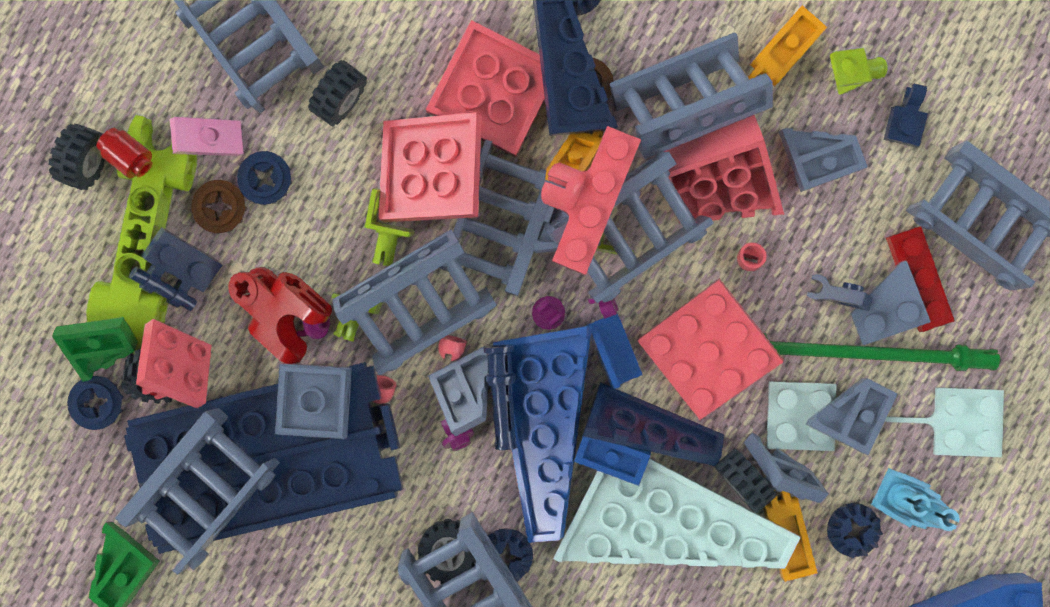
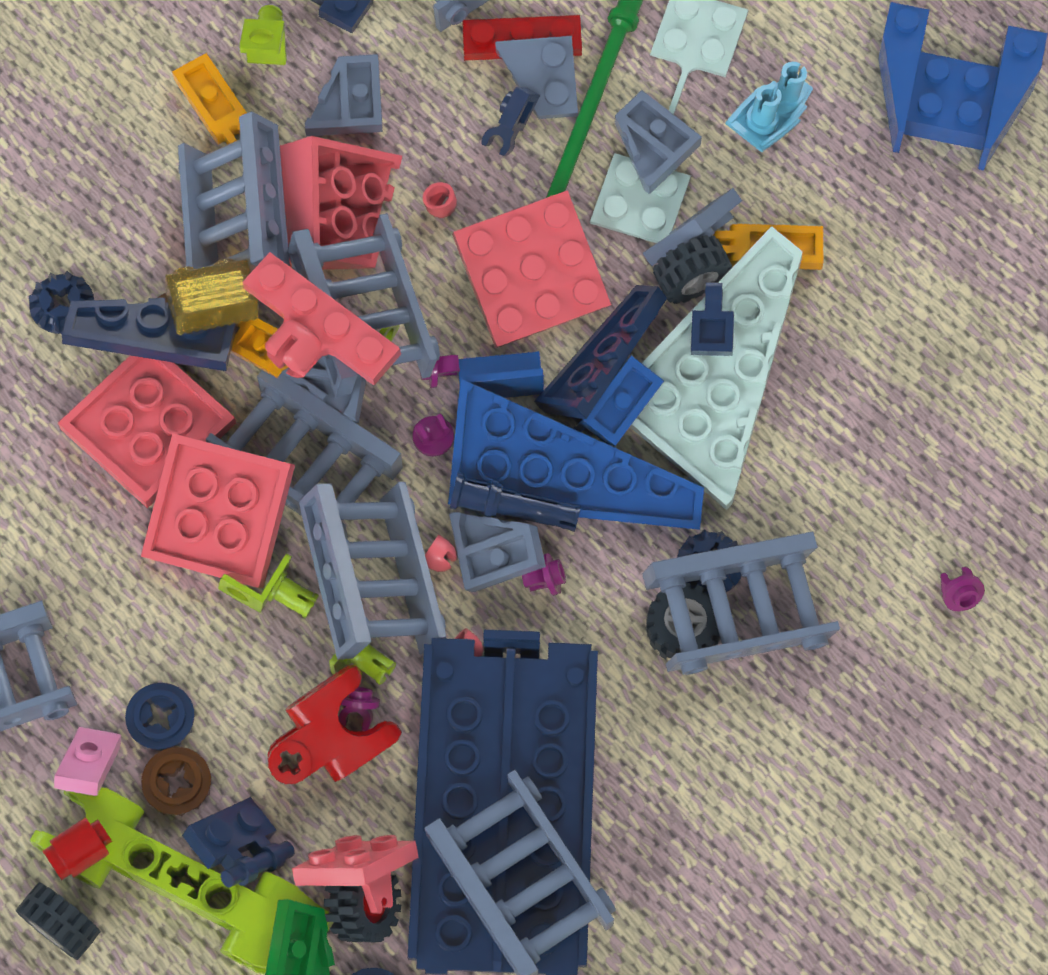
camera: 70 degrees left, 20 degrees down
(313, 401) = (451, 707): sand blue plate -> none
(337, 93) = (91, 591): black wheel -> none
(603, 100) = (210, 296): none -> clear yellow brick
(692, 515) = (713, 328): none -> dark blue plate
(840, 525) = (776, 190): dark blue gear -> none

